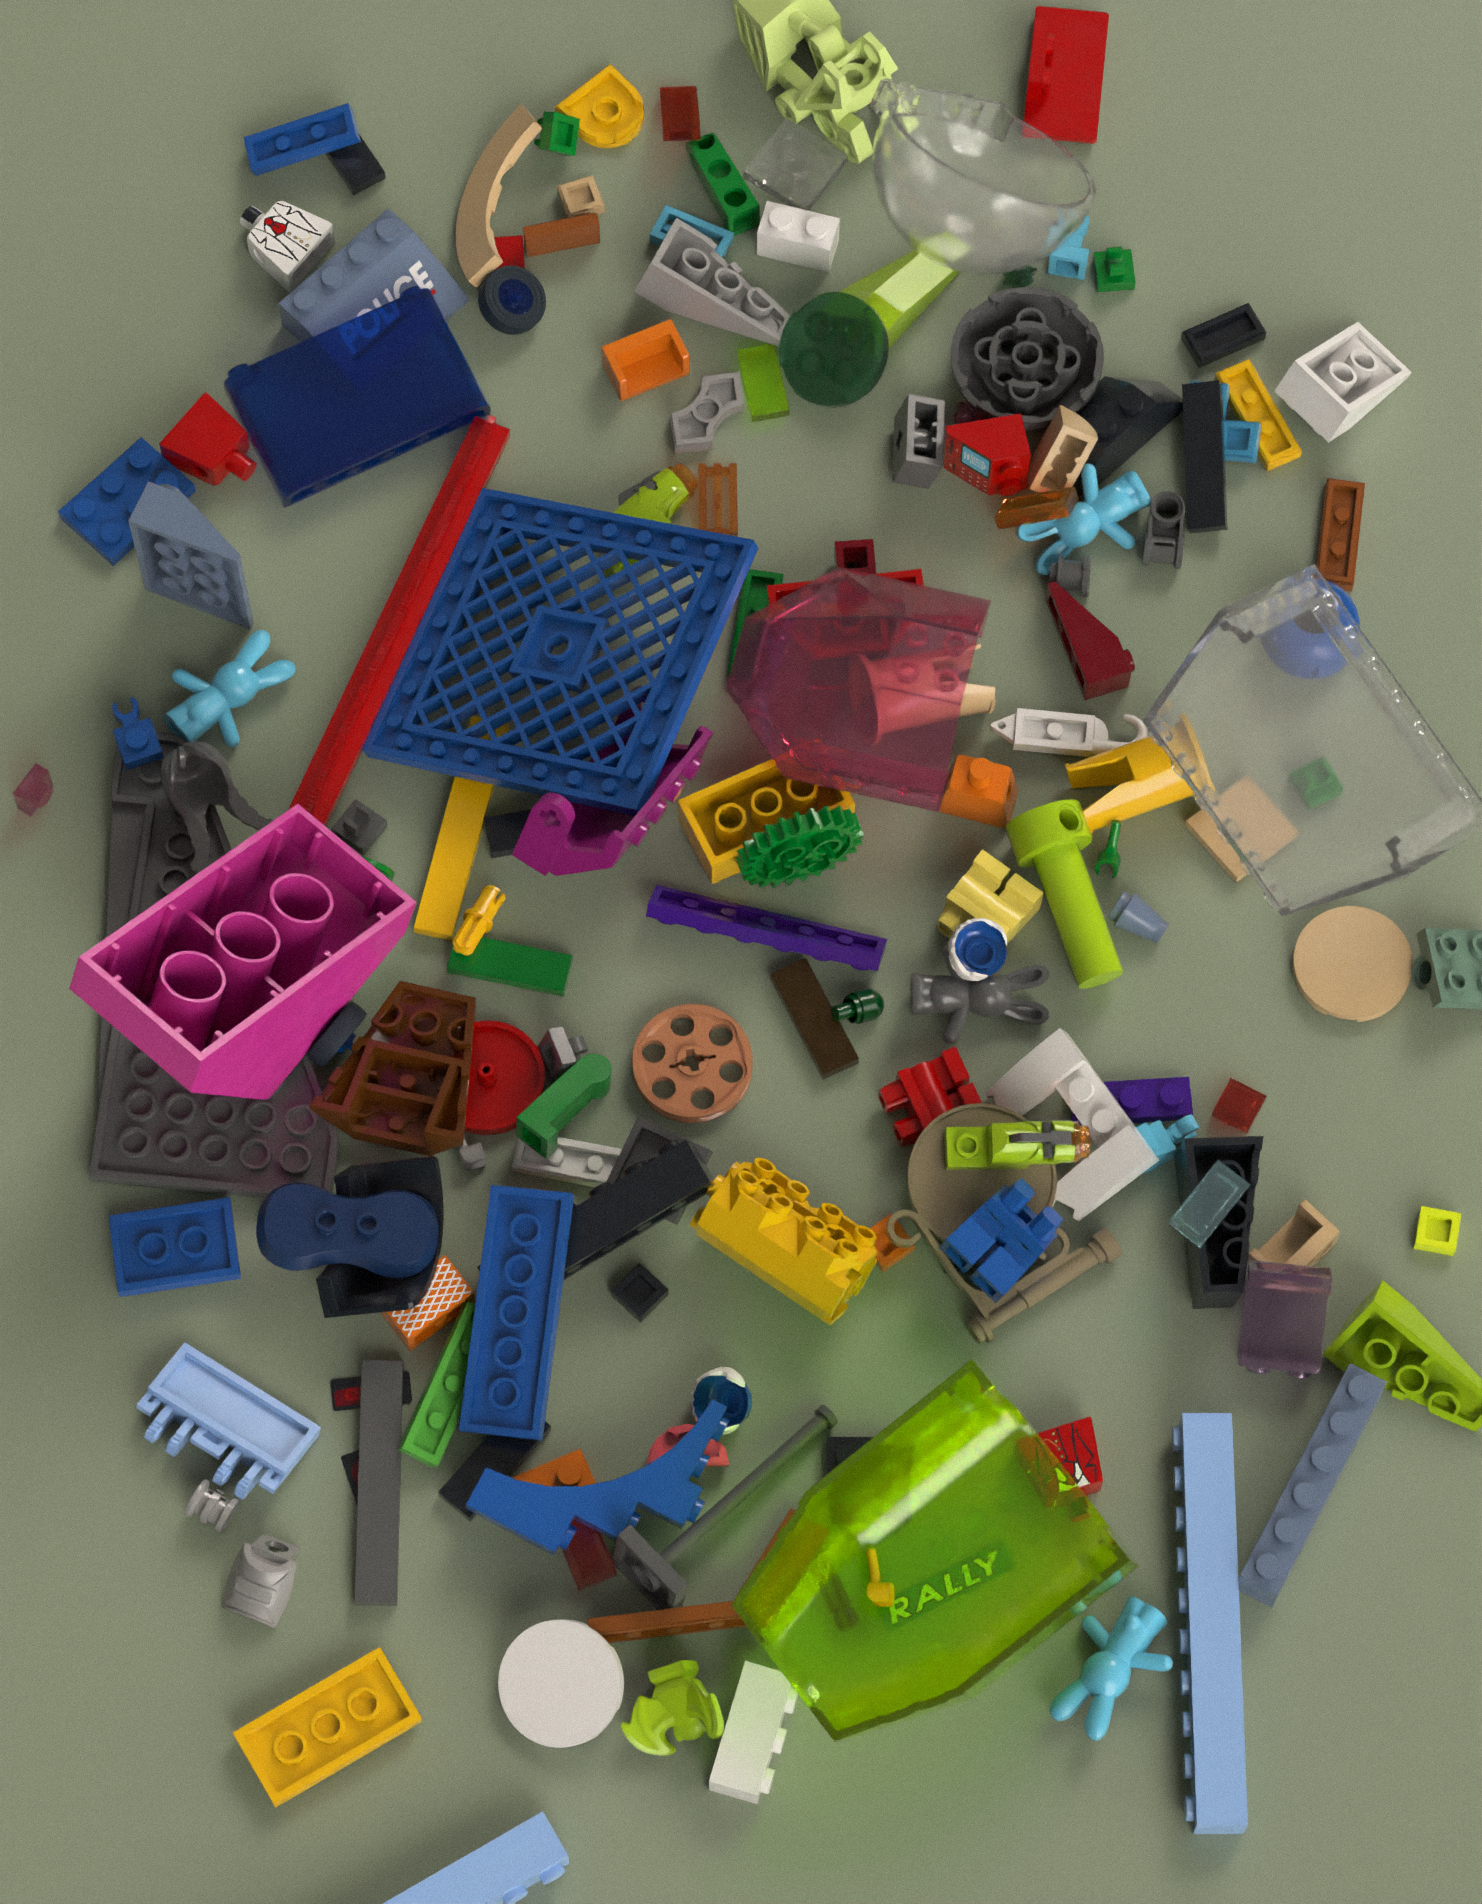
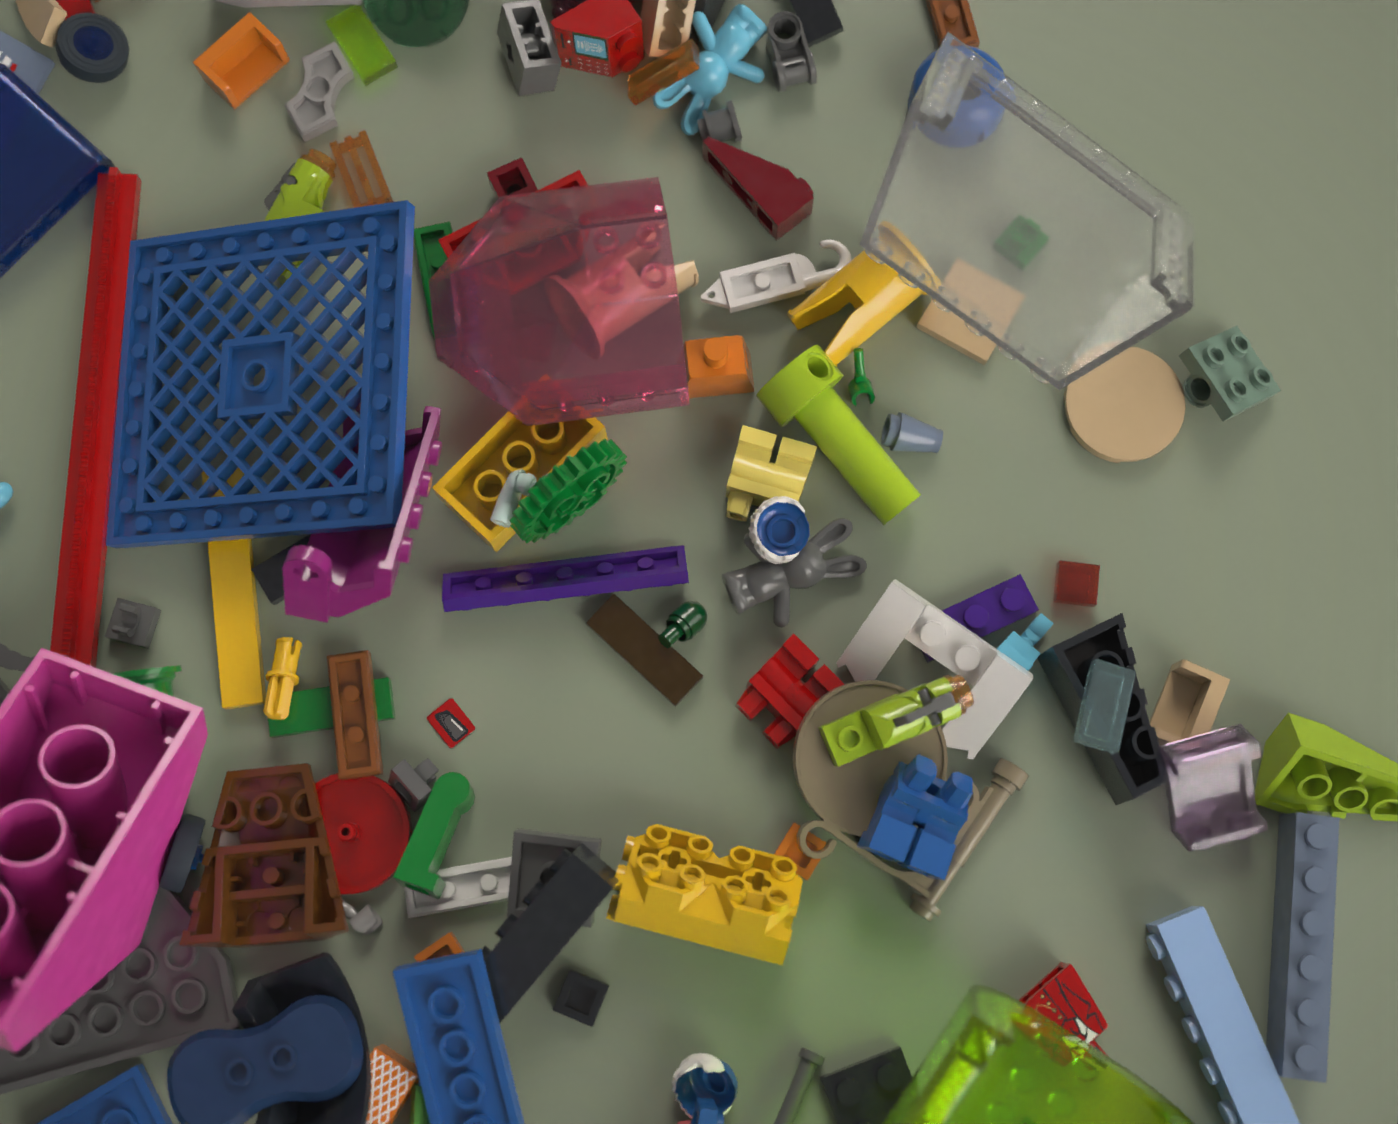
camera: 20 degrees left, 10 degrees up
(531, 975) = (354, 715): none -> dark orange tile
(612, 1018) = (451, 723): none -> sticker
(695, 1044) = (524, 733): nougat wedge -> none
(742, 832) = (515, 485): none -> light aqua arm
(1437, 1231) = (1307, 636): neon yellow tile -> none

